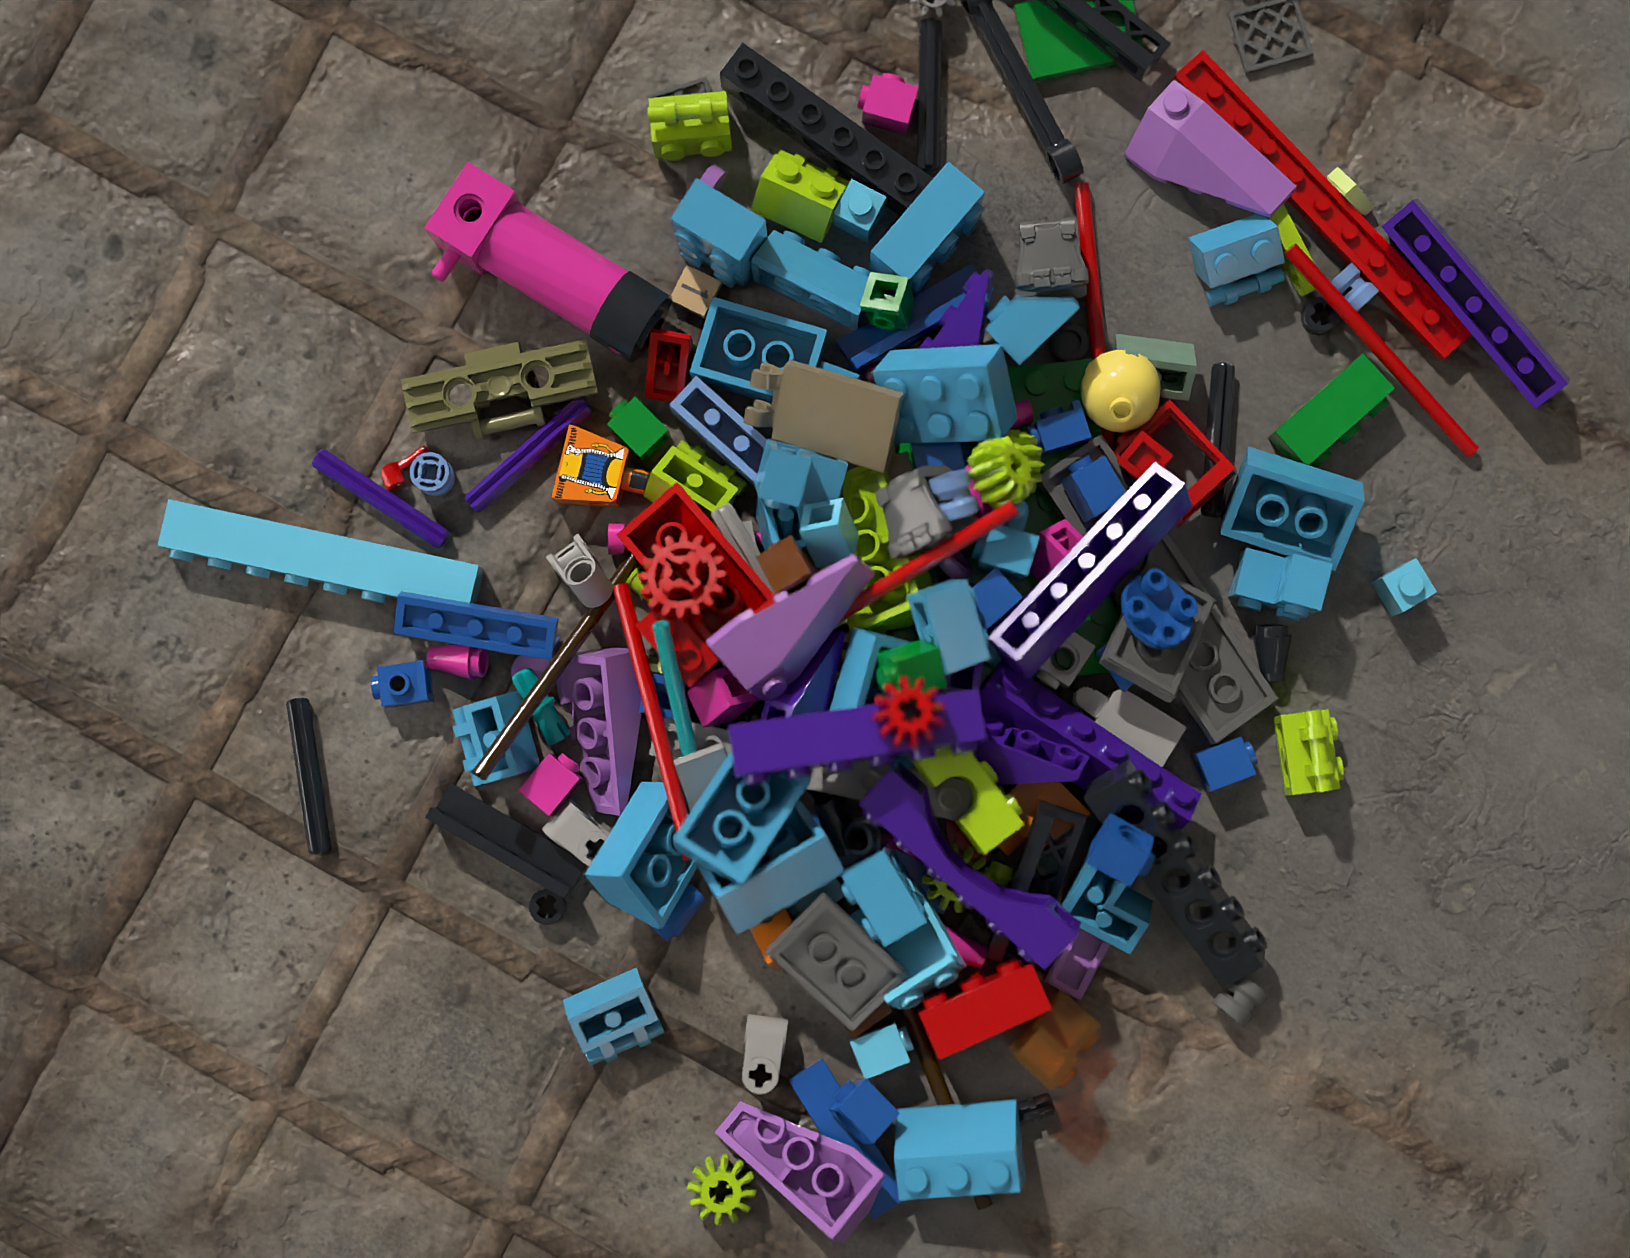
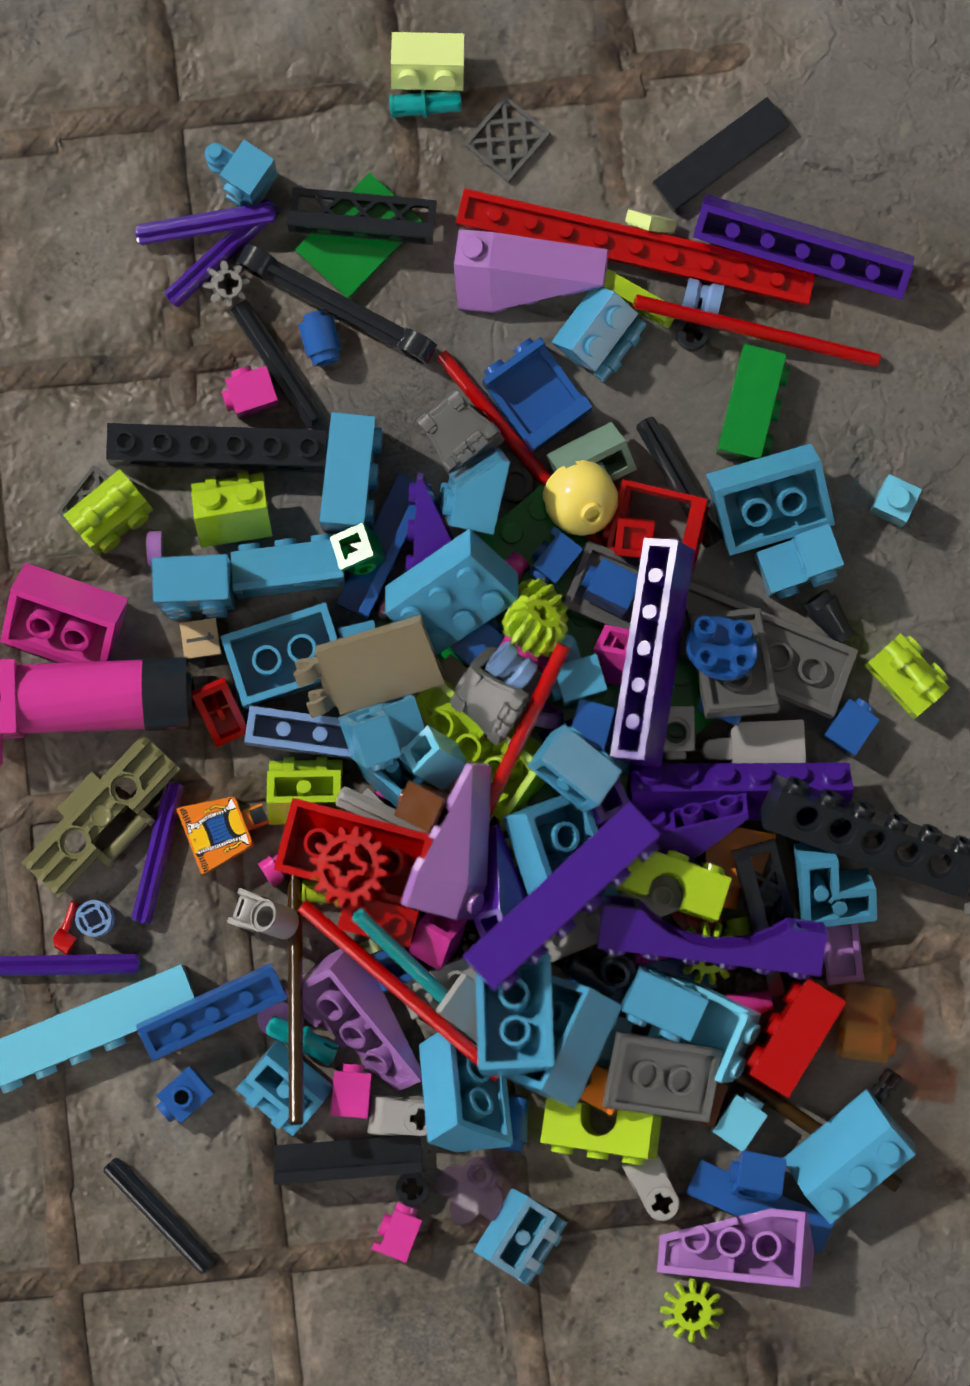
camera: 40 degrees left, 0 degrees up
(458, 660) = (214, 1048): dark pink cone -> none
(508, 937) = (398, 1232): none -> dark pink brick
(586, 189) = (62, 617): none -> dark pink slope
(594, 947) = (467, 1194): none -> clear purple plate
(637, 428) = (229, 775): green brick -> none
(774, 997) = (632, 1136): none -> lime arch
(859, 210) = (285, 491): medium azure brick -> none
(913, 661) = (569, 821): green brick -> none
(922, 708) = (582, 864): red gear -> none
(983, 97) = (320, 338): none -> blue brick
(1121, 850) = (817, 848): blue brick -> none
(1141, 275) = (535, 394): none -> blue panel
(1454, 173) = (720, 154): none -> black tile

